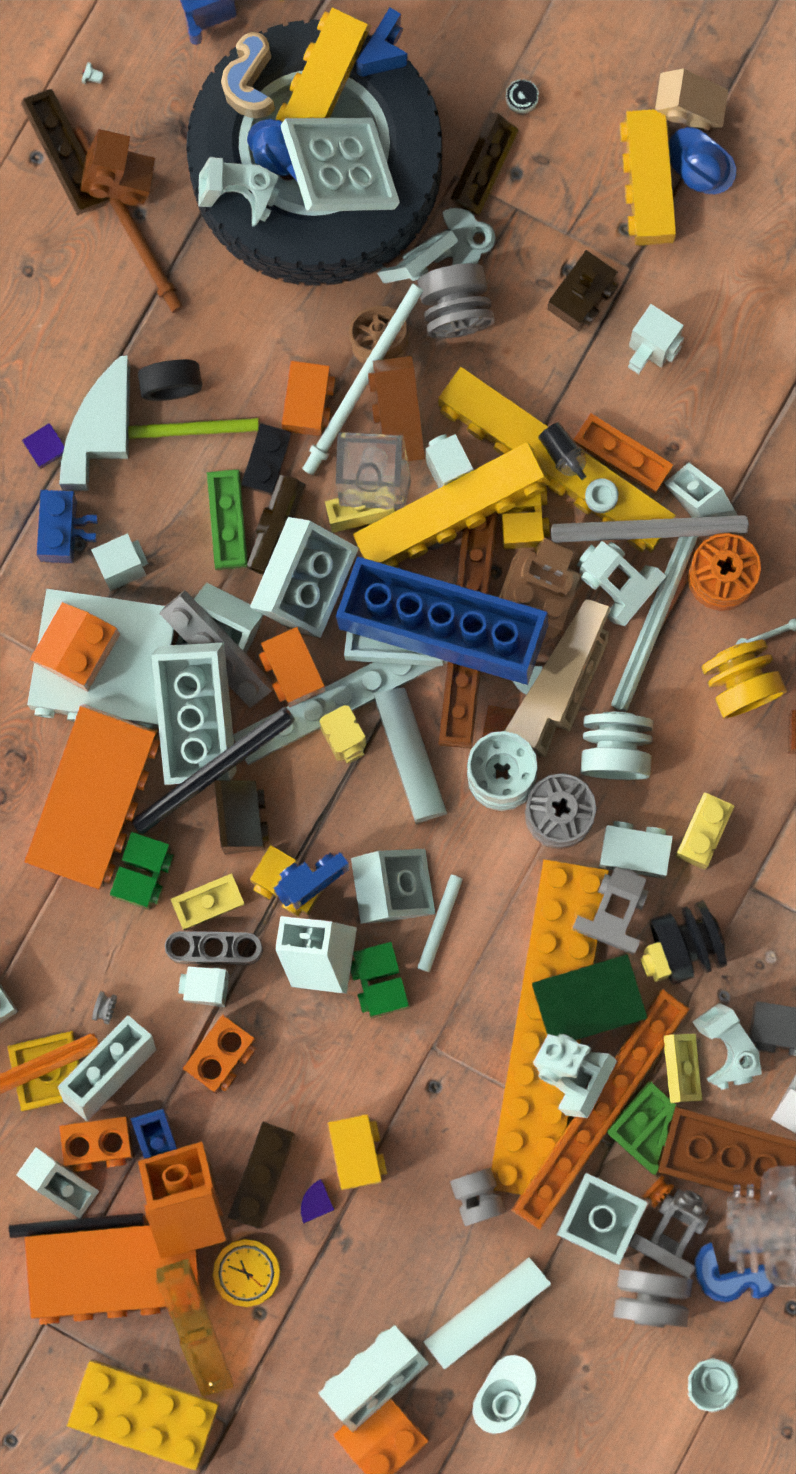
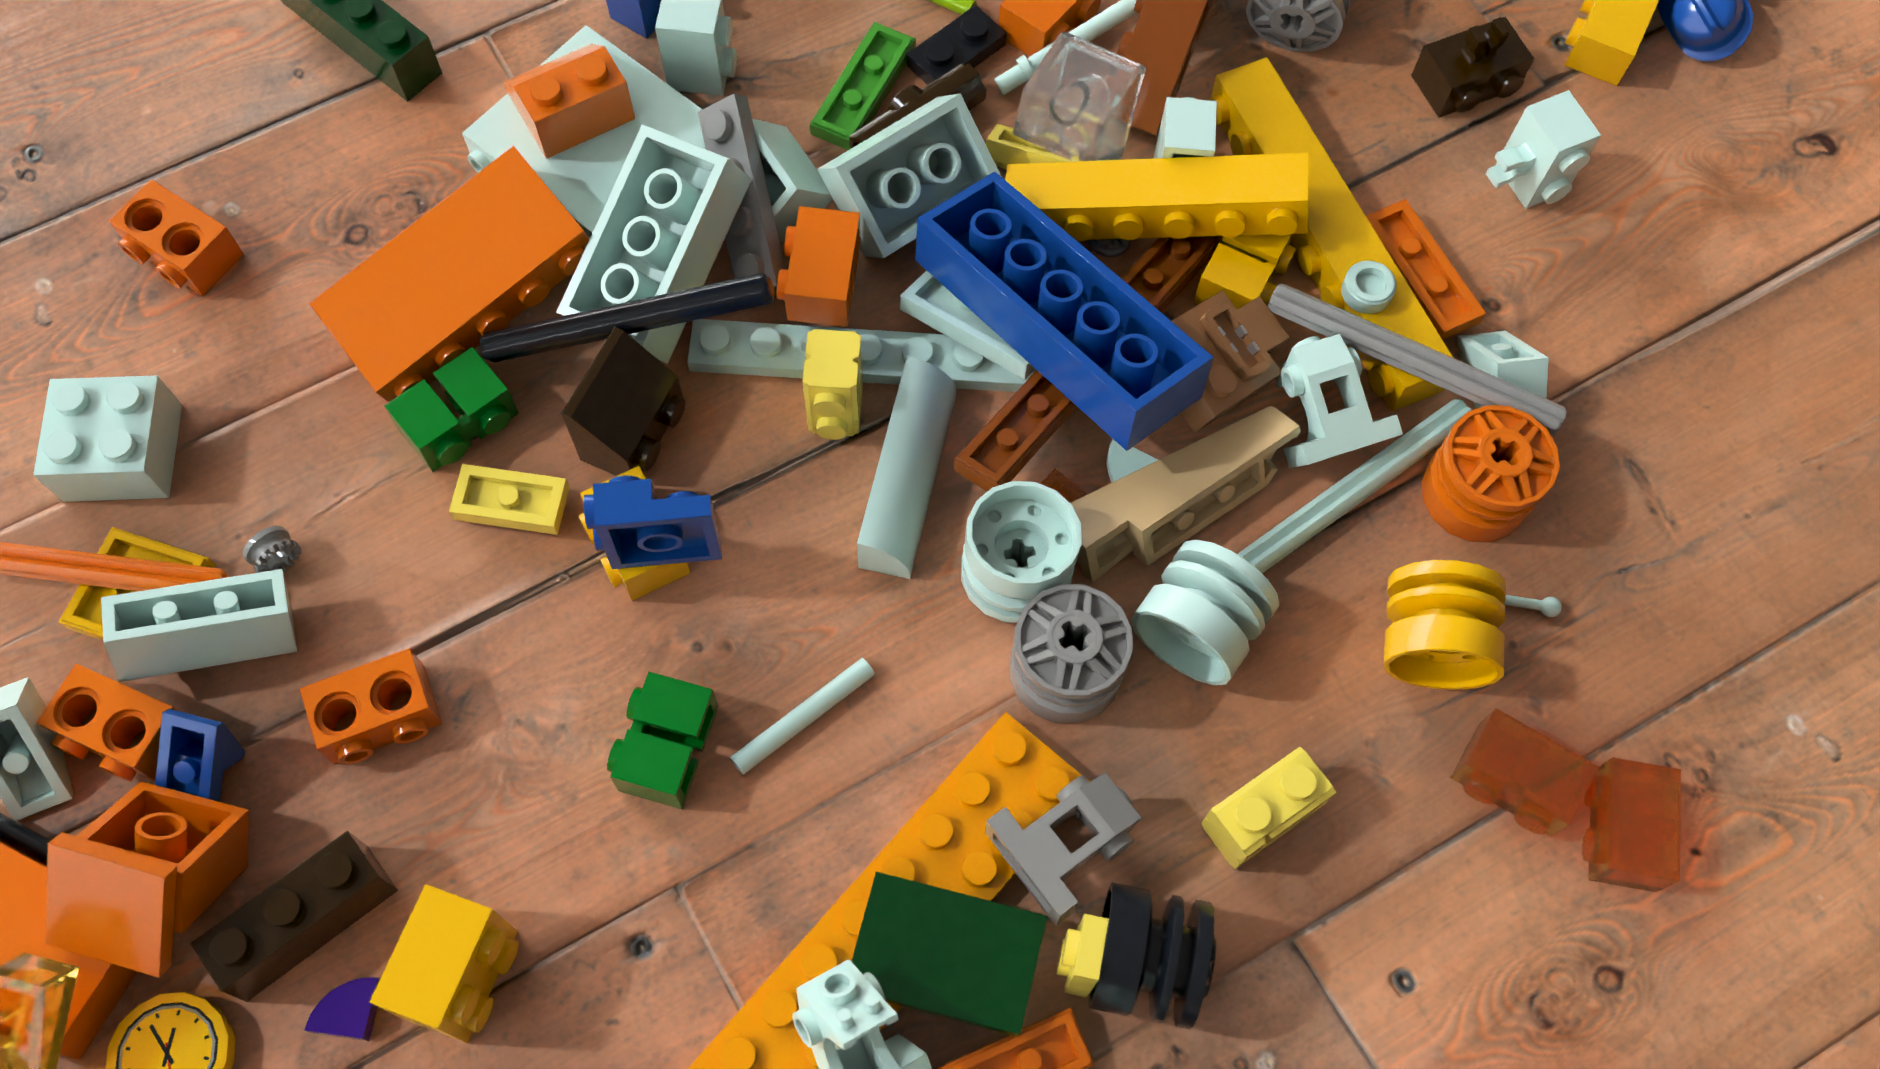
camera: 25 degrees right, 15 degrees down
(198, 941) = (456, 543): light grey beam -> none
(204, 986) = (423, 603): light aqua slope -> none
(316, 953) = (598, 641): light aqua slope -> none
(392, 885) = (770, 621): light aqua slope -> none
(564, 451) = (1349, 203): black piece -> none
(636, 850) = (1155, 776): light aqua brick -> none

